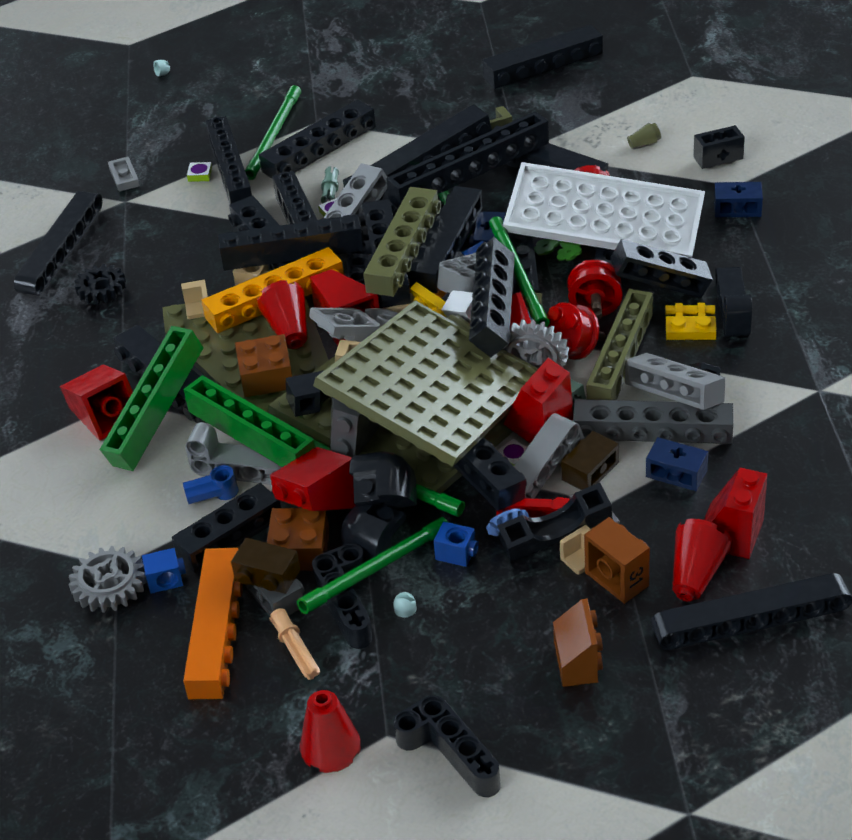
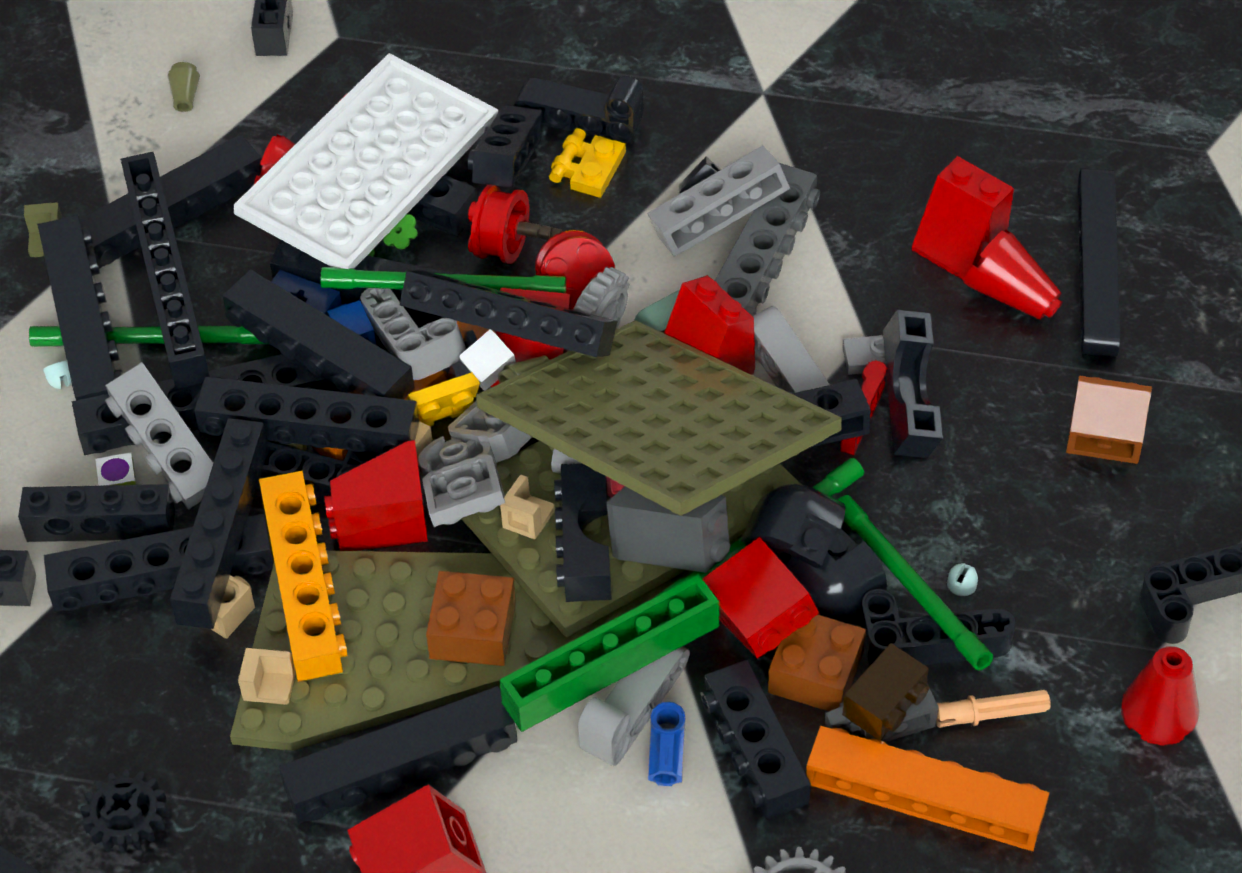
camera: 75 degrees left, 10 degrees up
(151, 398) = (484, 765): green brick -> none
(163, 570) = (809, 827): blue brick -> none
(285, 311) = (382, 566): red cone -> none
(329, 184) = (58, 462): sand green pin -> none
(401, 241) = (335, 378): olive brick -> none
(455, 544) = (887, 510): blue brick -> none
(492, 528) = (883, 433): medium blue gear -> none
(573, 550) = (945, 379): tan panel -> none
(590, 461) = (810, 324): dark brown brick -> none
(617, 559) = (994, 344): dark orange brick -> none
(620, 345) = (625, 235): olive brick -> none
(676, 464) = (842, 250): dark blue brick -> none
(738, 199) = (383, 33): dark blue brick -> none

